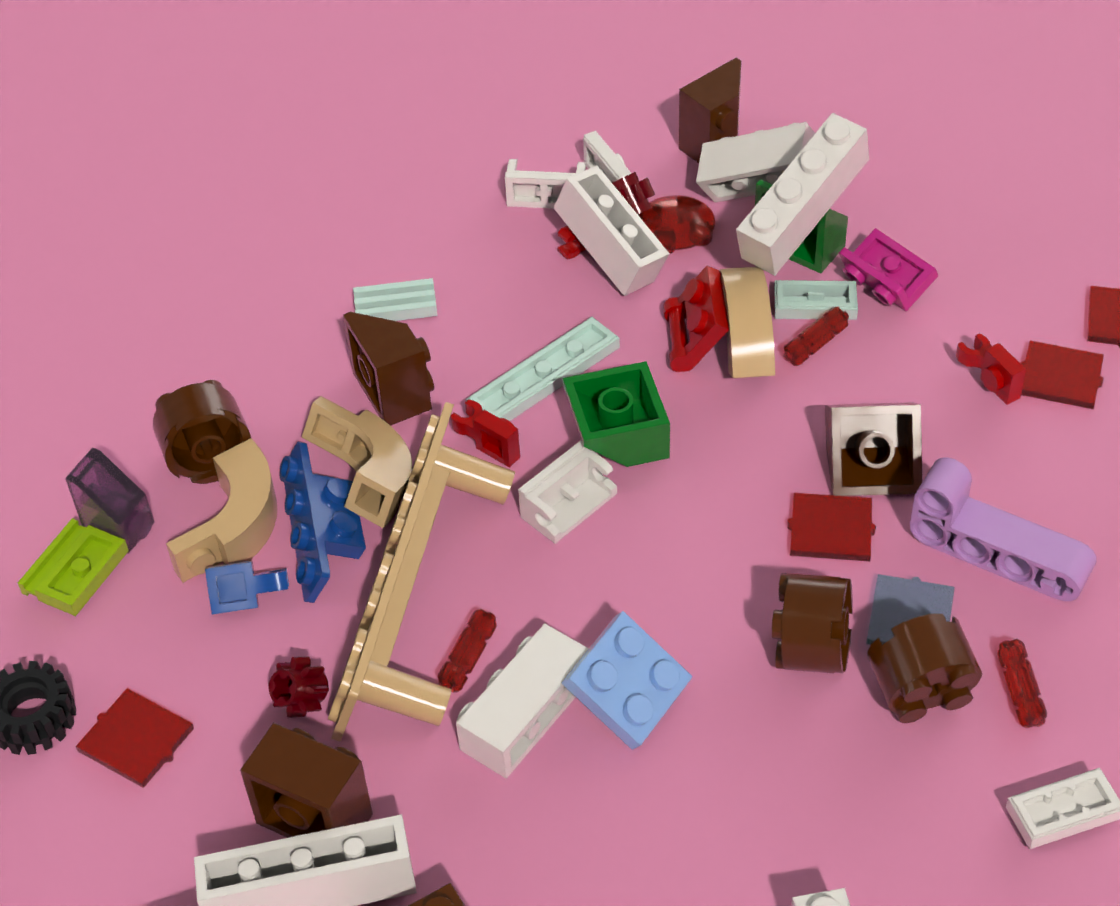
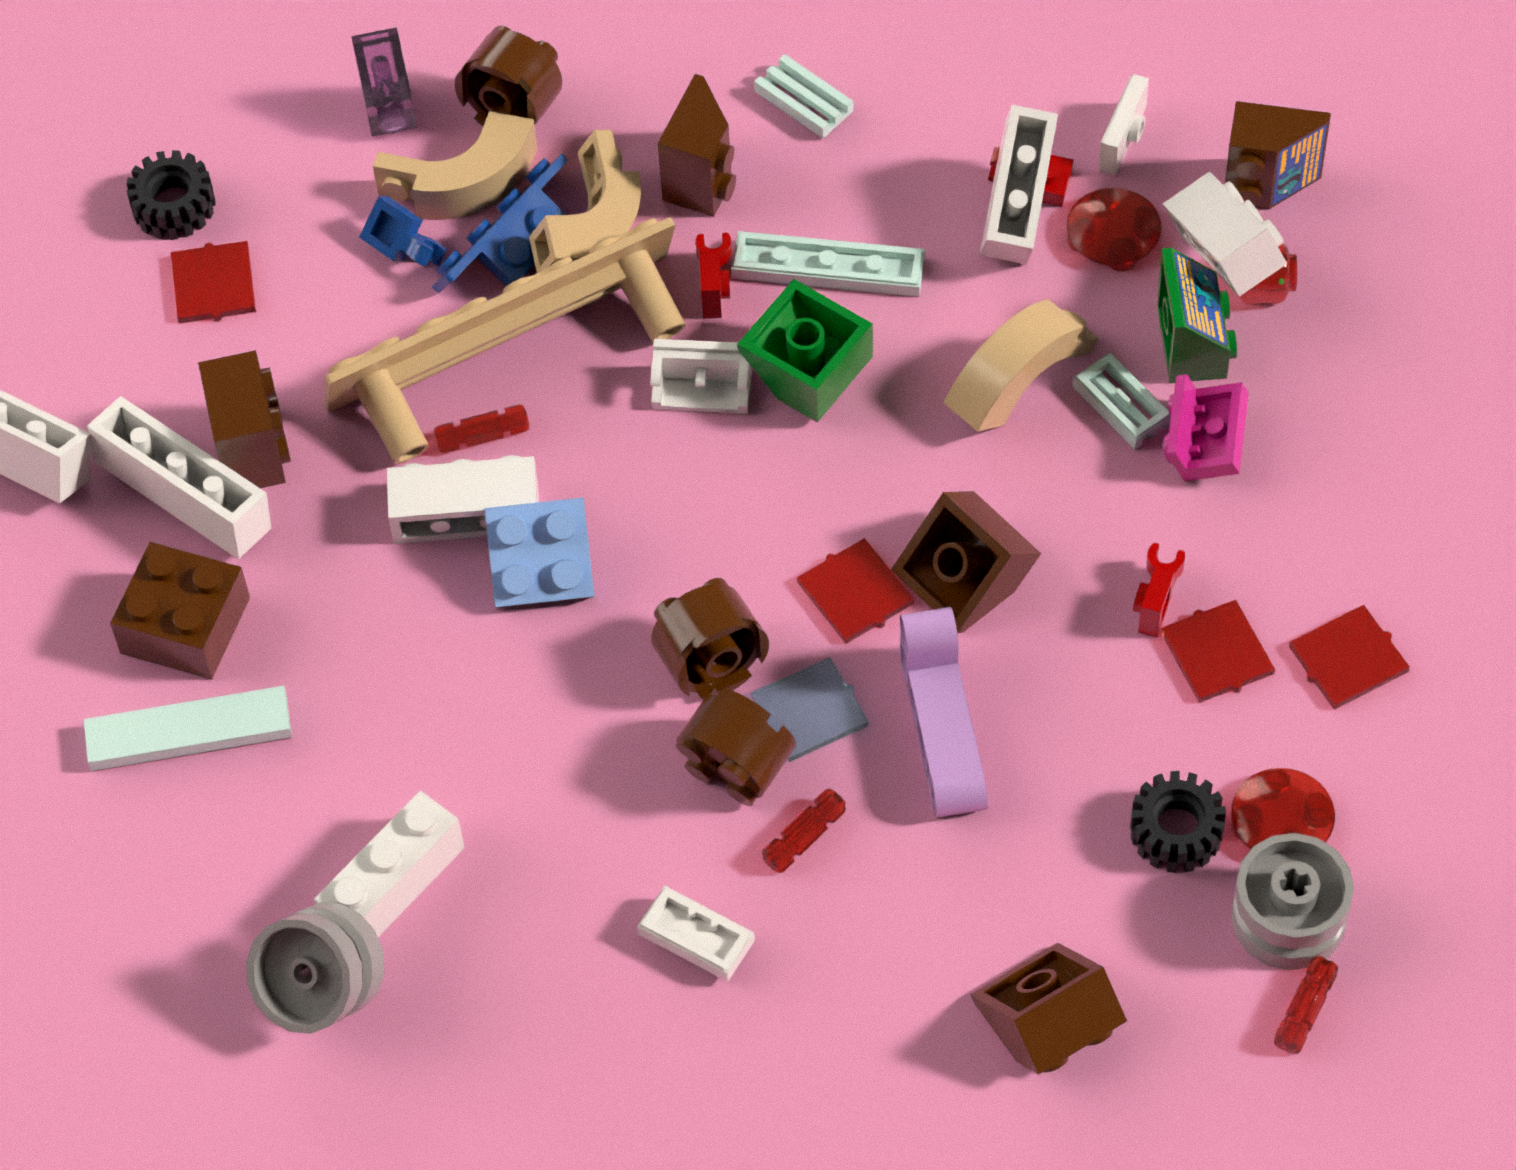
camera: 50 degrees right, 10 degrees up
(73, 567) = (317, 112): lime plate -> none
(298, 687) = (335, 341): dark red gear -> none
(535, 188) = (1052, 90): white hinge -> none
(635, 191) = (1090, 167): dark red gear -> none
(706, 317) = (975, 330): red plate -> none
(803, 194) = (1161, 291): white brick -> none
(816, 336) = (1072, 431): clear red axle -> none

